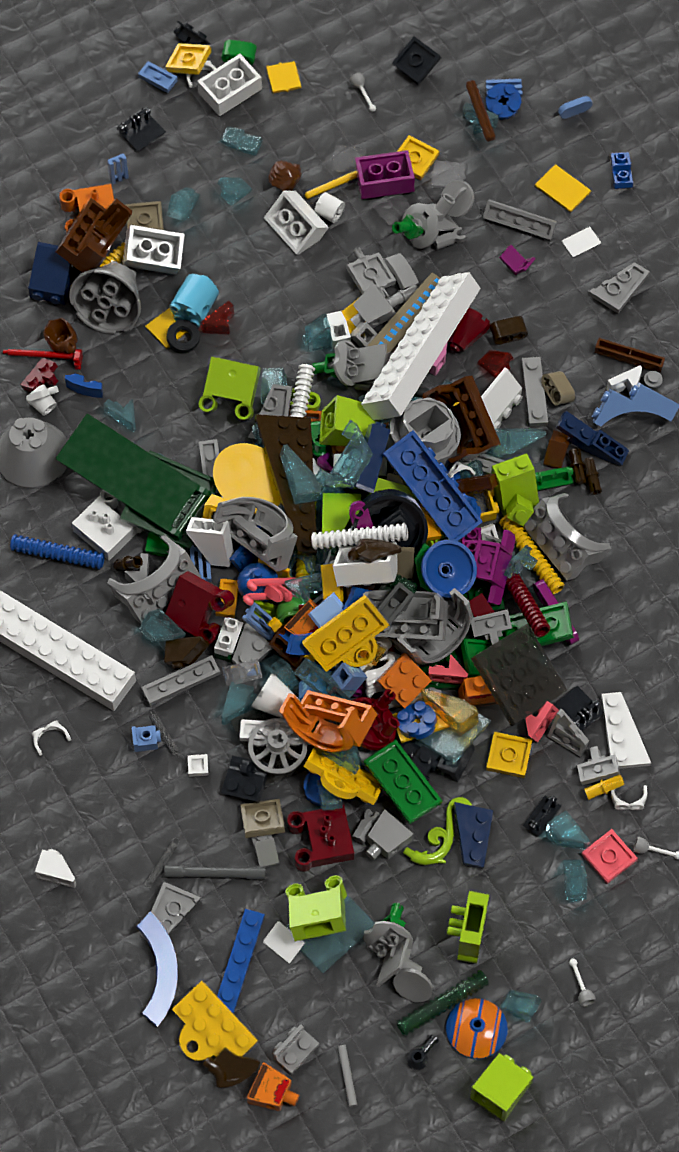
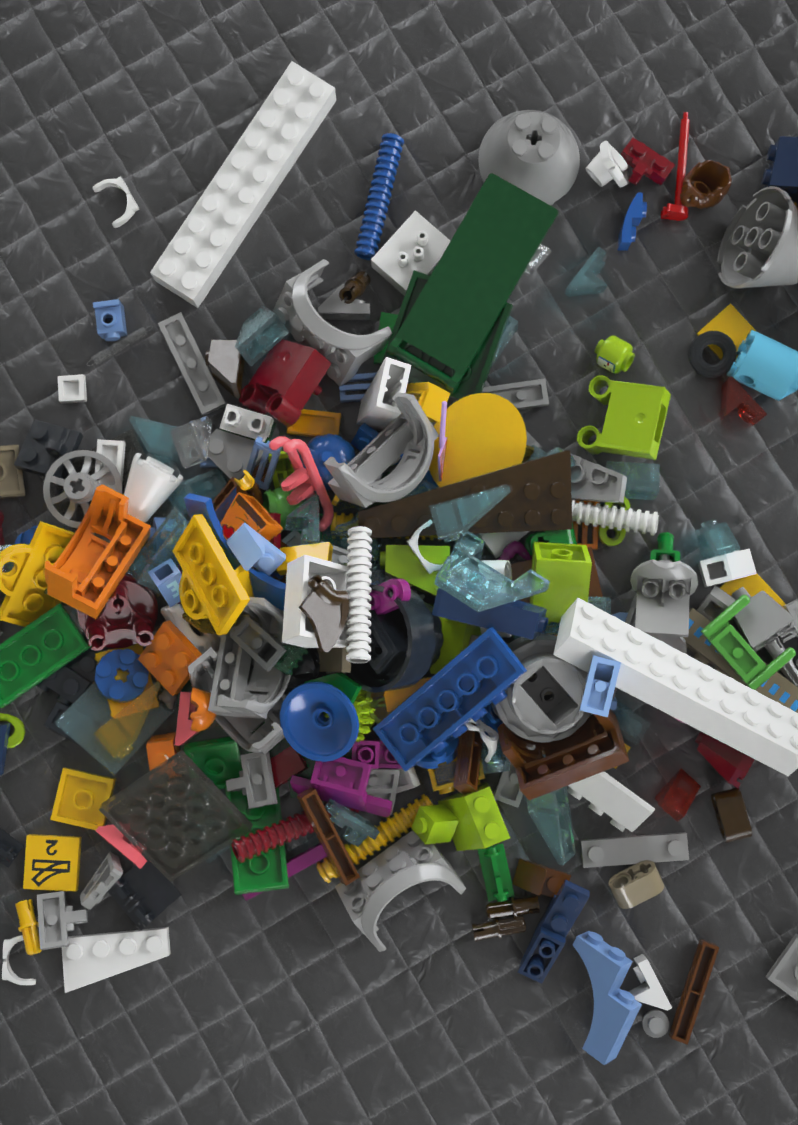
camera: 95 degrees right, 20 degrees up
(182, 397) = (614, 354): none -> lime head
(244, 494) = (442, 440): none -> lavender piece
(324, 512) = (413, 544): none -> white cap
(395, 319) = (738, 652): none -> bright green plate
(423, 385) = (600, 686): none -> light blue slope
(441, 652) = (202, 717): none -> orange hair
(529, 574) = (328, 836): none -> reddish brown piece
(556, 775) = (52, 862): none -> yellow tile

